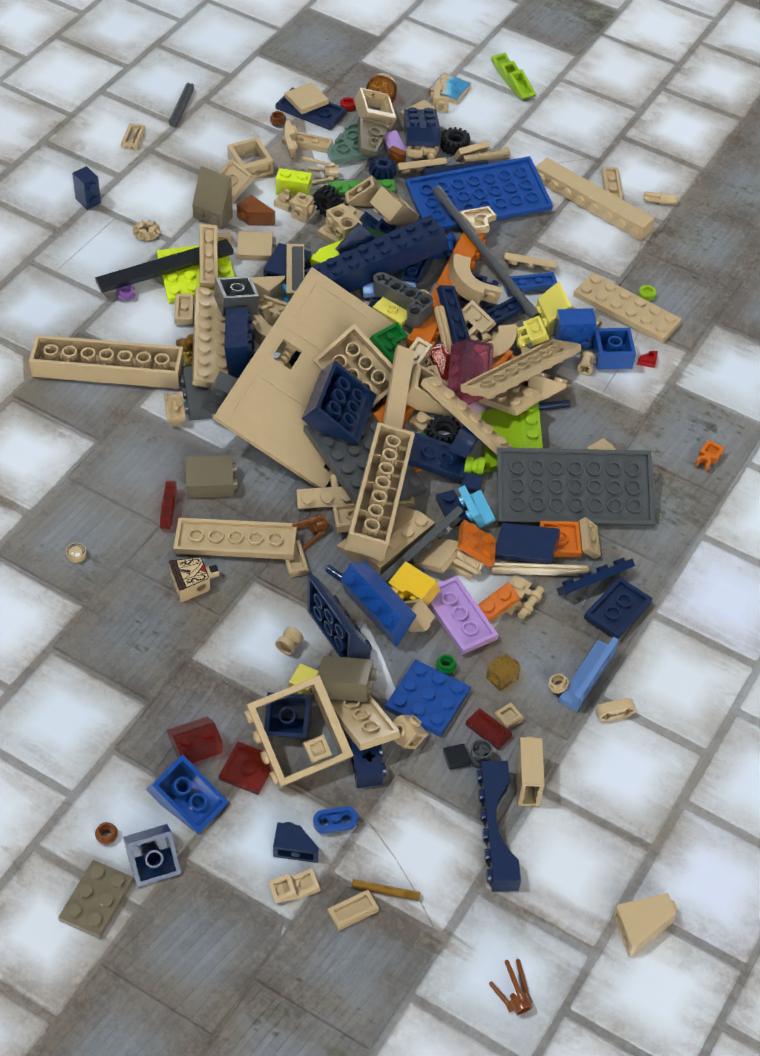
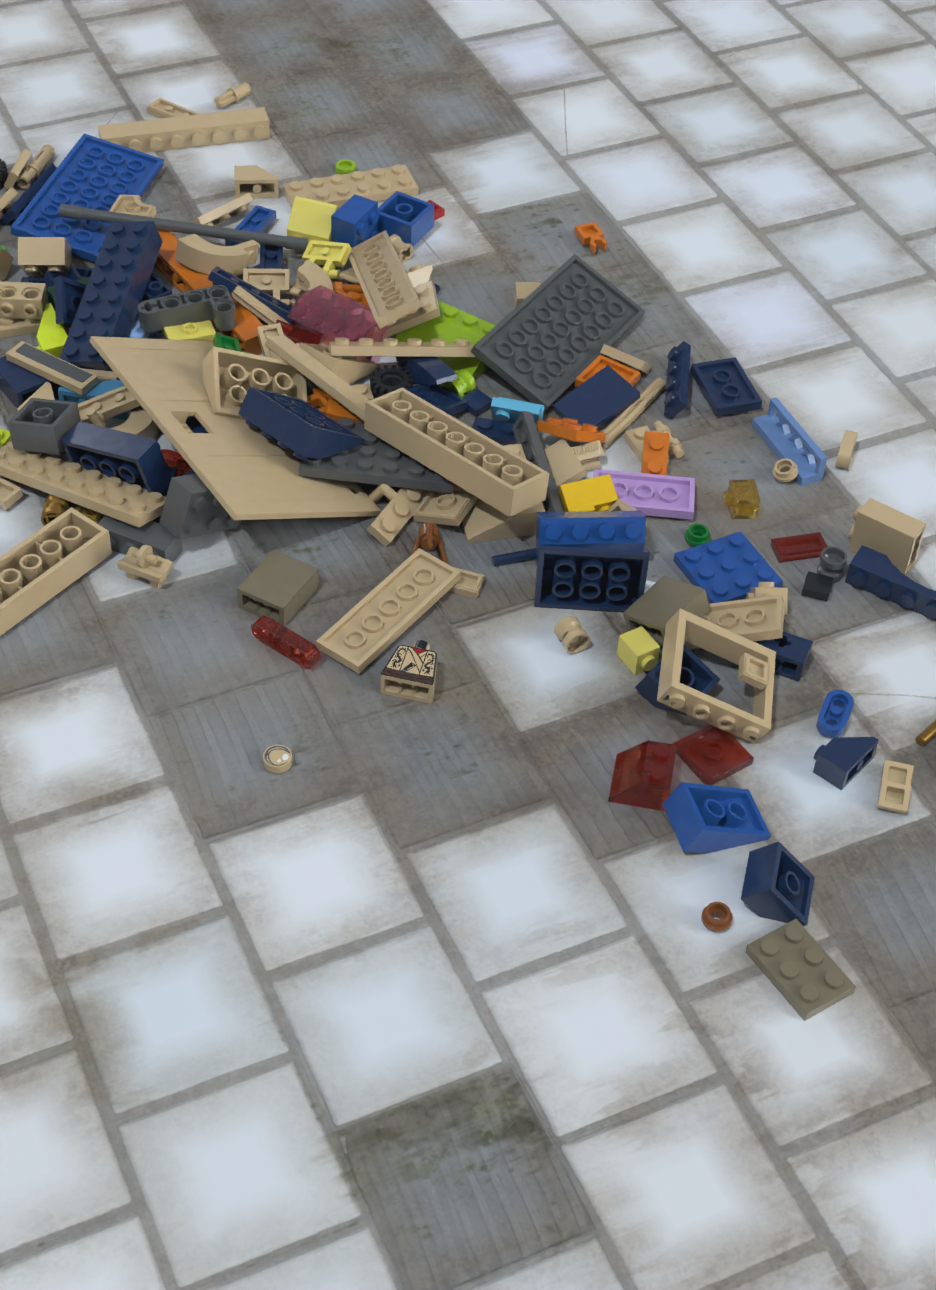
camera: 55 degrees left, 5 degrees down
(508, 716) = (794, 524): tan tile -> none
(575, 257) = (256, 182): none -> tan slope

